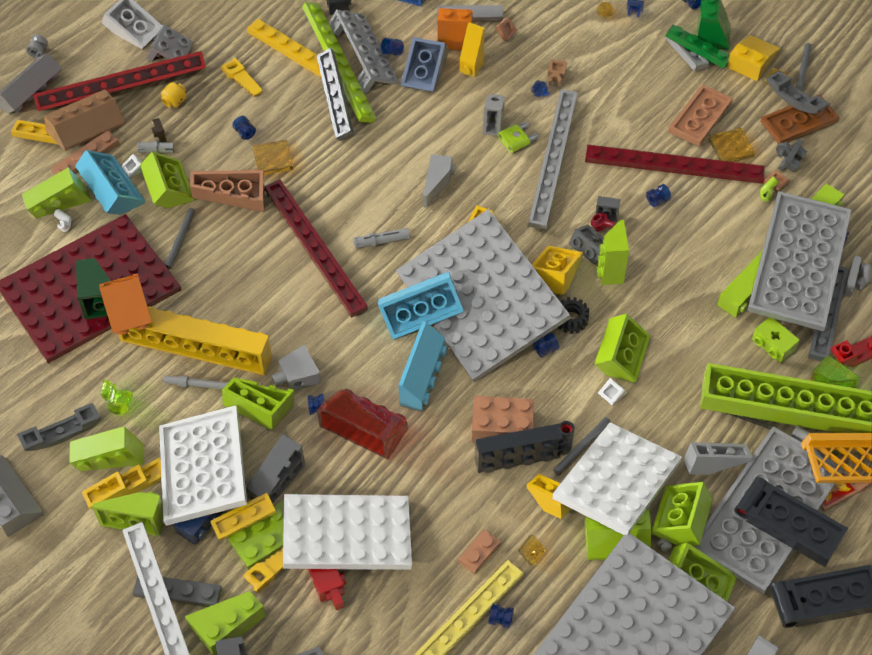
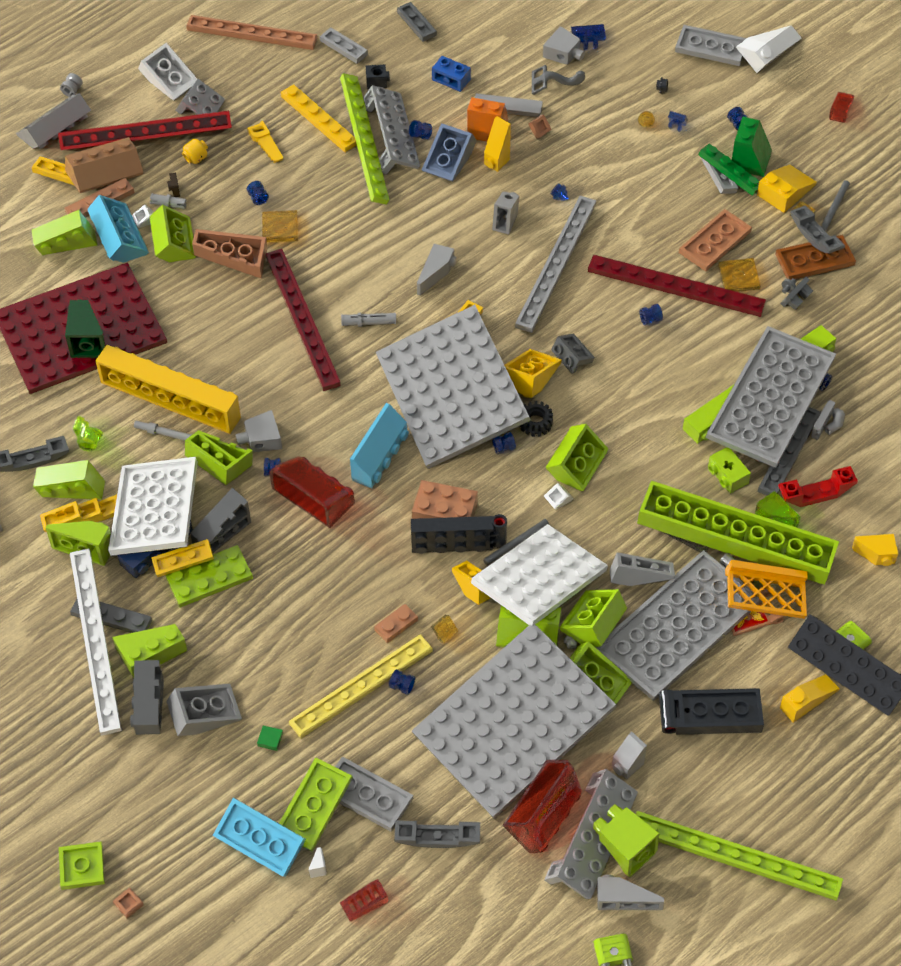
camera: 10 degrees right, 0 degrees up
(65, 220) = (68, 261): white arm -> none
(125, 304) = (108, 347): orange slope -> none
(179, 239) = (169, 301): dark grey bar -> none
(267, 569) = (203, 606): yellow piece -> none
(329, 585) = (248, 623): red hinge -> none
(335, 94) = (353, 171): plate -> none
(346, 532) = (275, 586): white plate -> none
(425, 301) = (394, 385): medium azure slope -> none
(514, 137) = (523, 239): lime piece -> none
(556, 71) = (580, 176): medium nougat plate -> none
(601, 221) = (587, 332): dark red plate -> none
(609, 206) = (596, 320): dark grey piece -> none
(613, 256) = (585, 370): lime slope -> none
(767, 189) = (762, 323): lime arm -> none
(783, 181) = (774, 316): nougat tile -> none
(791, 521) = (693, 638): black hinge -> none

